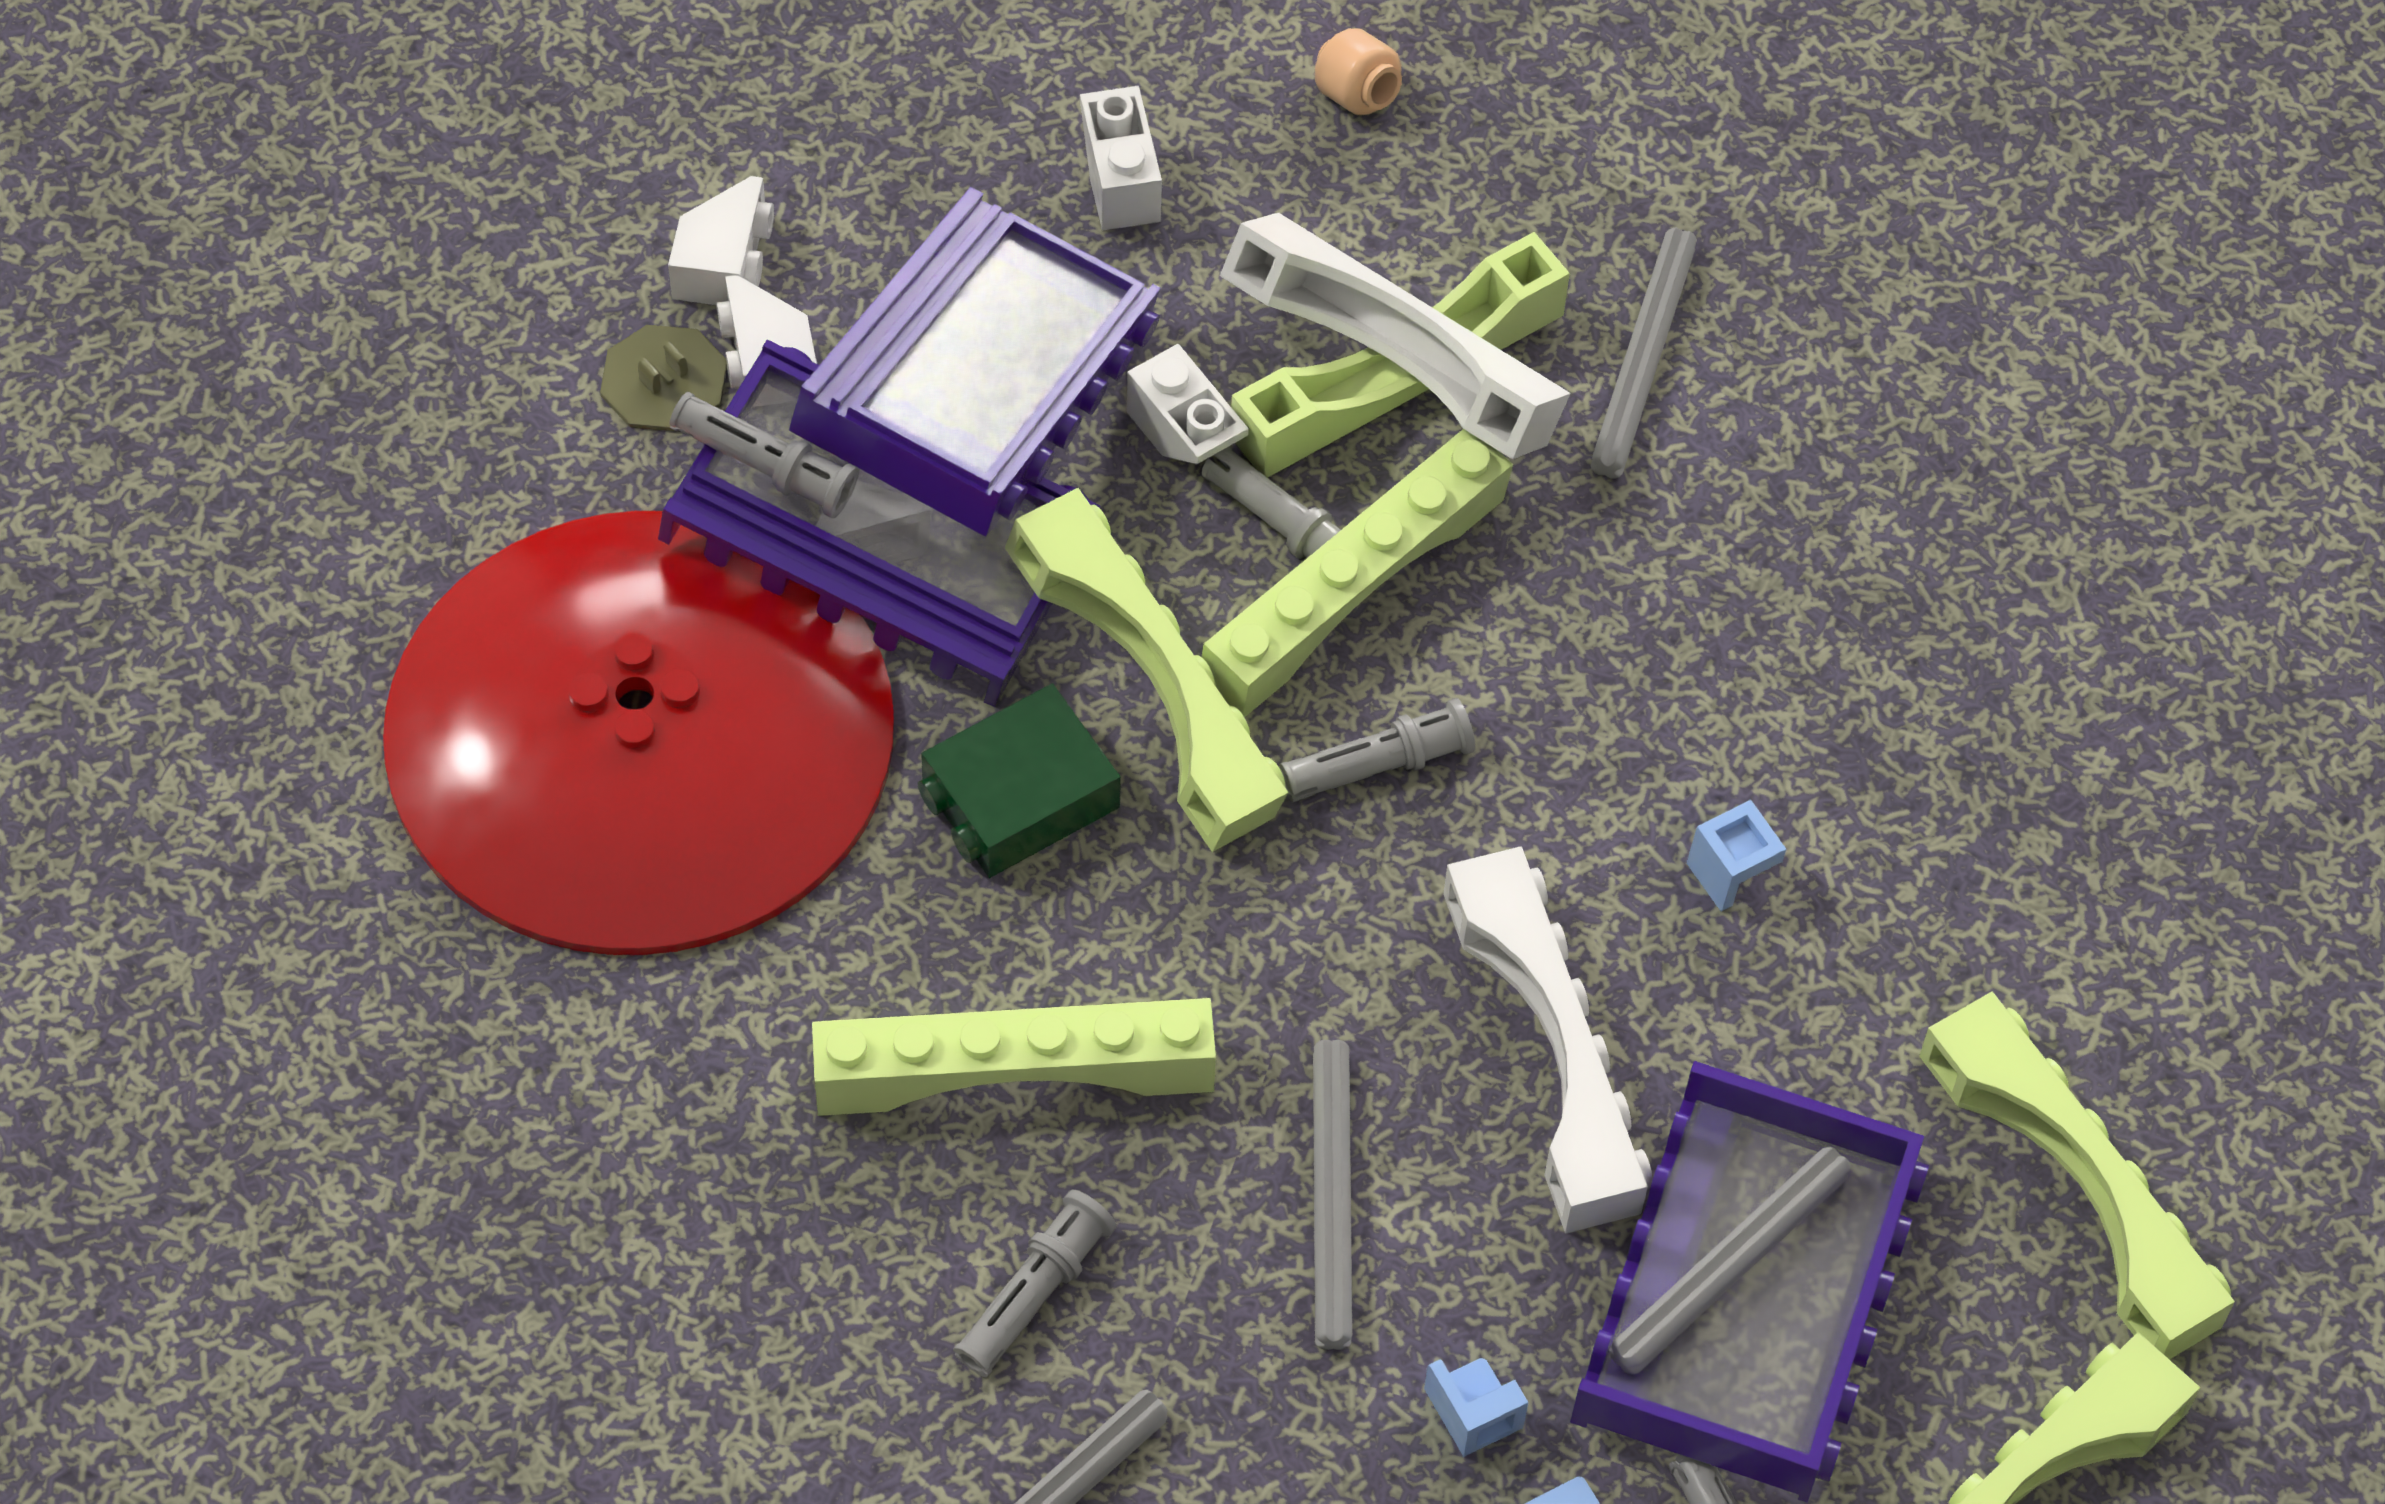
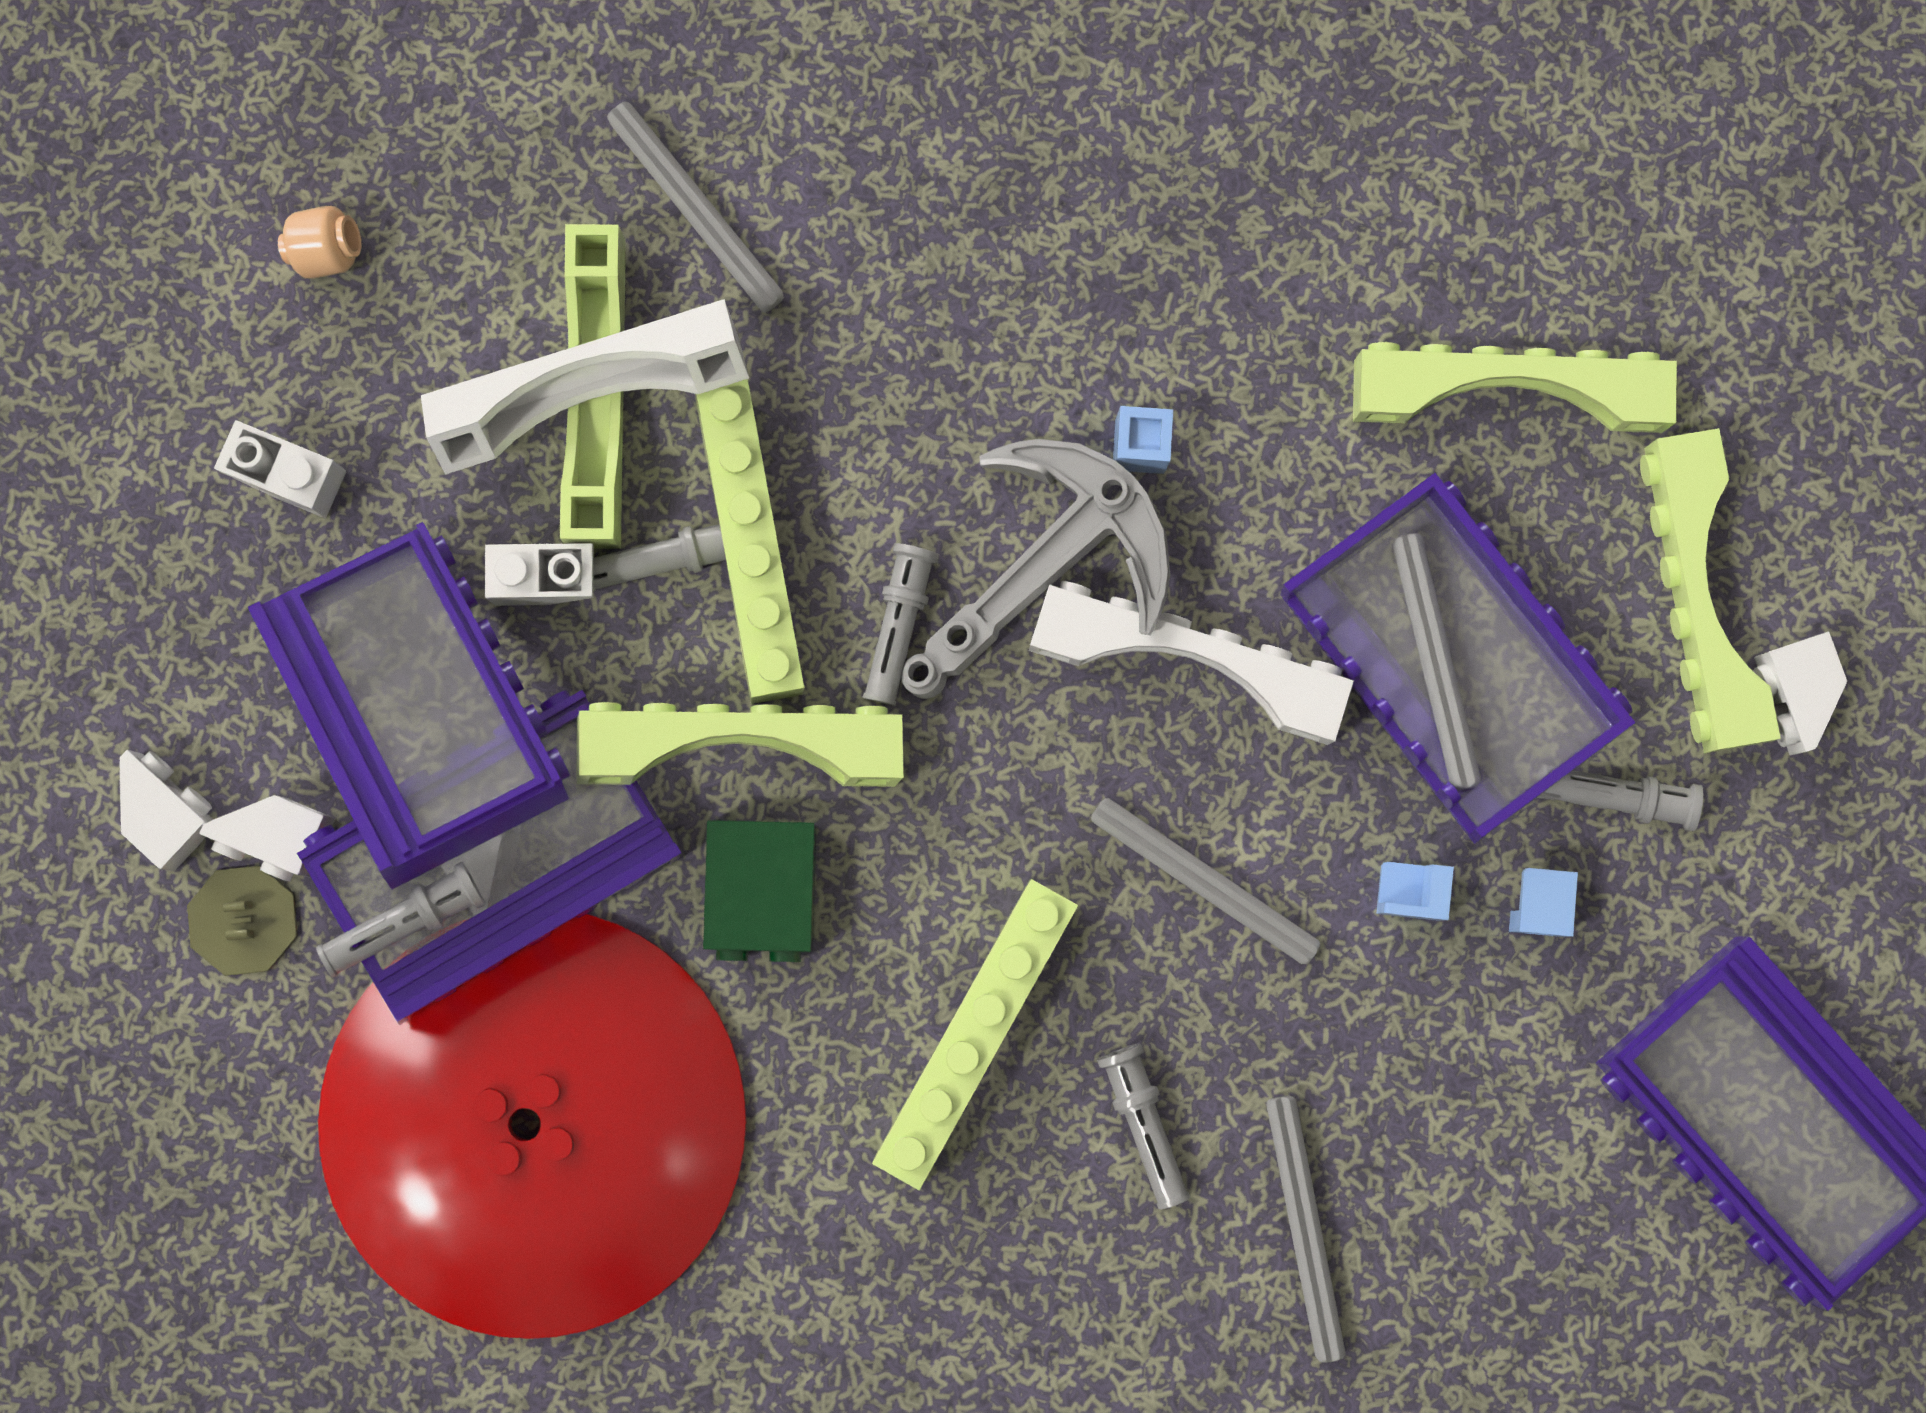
camera: 60 degrees left, 25 degrees up
(1644, 857) = (1055, 552): none -> light grey piece

